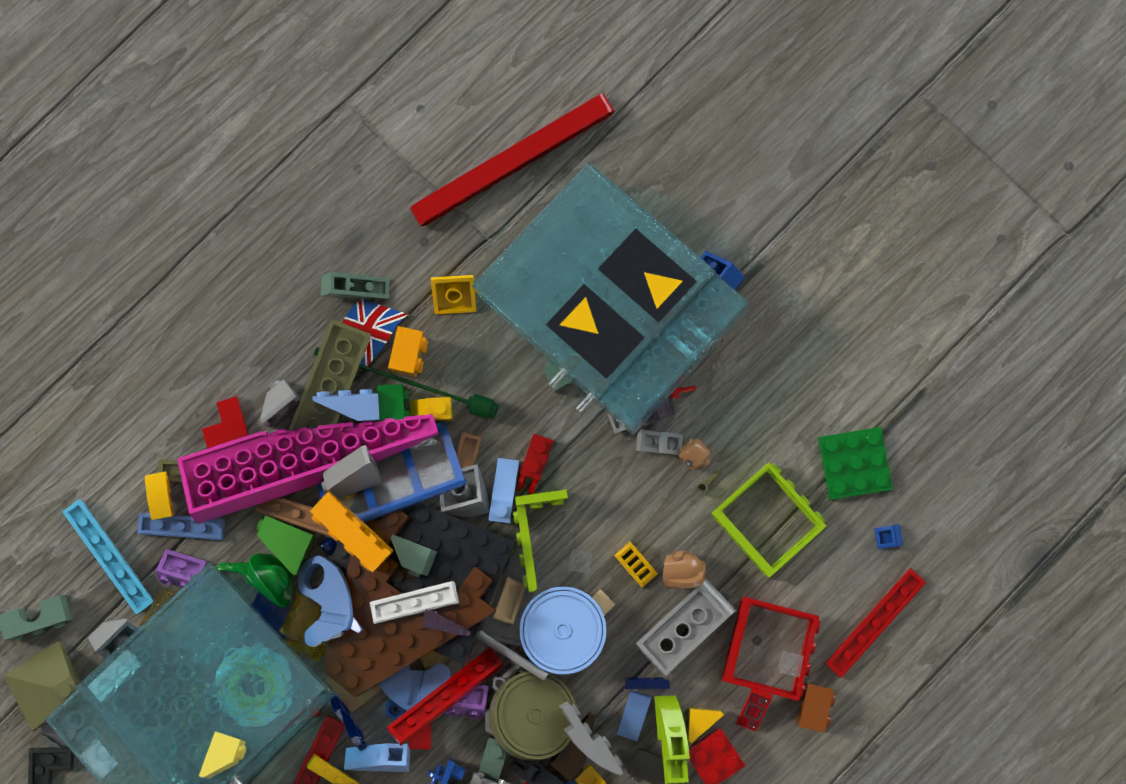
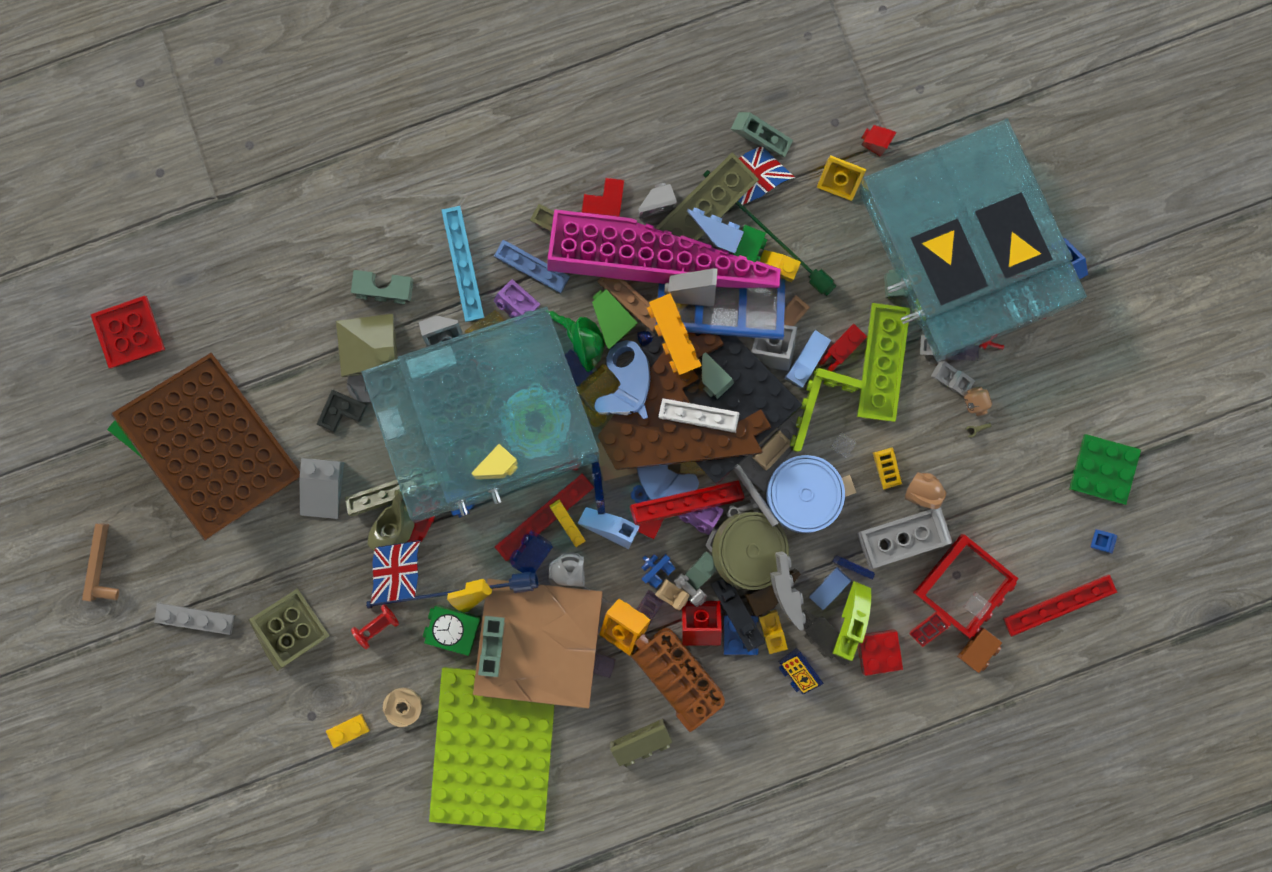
camera: 20 degrees right, 5 degrees up
(158, 495) = (526, 232): yellow slope -> none
(407, 352) = (780, 210): light orange brick -> none
(438, 622) = (712, 440): clear purple slope -> none
(472, 239) = (877, 139): none -> red slope
(512, 160) = (940, 87): red beam -> none
(581, 460) = (883, 362): none -> lime plate
(700, 720) = (882, 617): yellow slope -> none
(802, 504) = (984, 494): lime window -> none

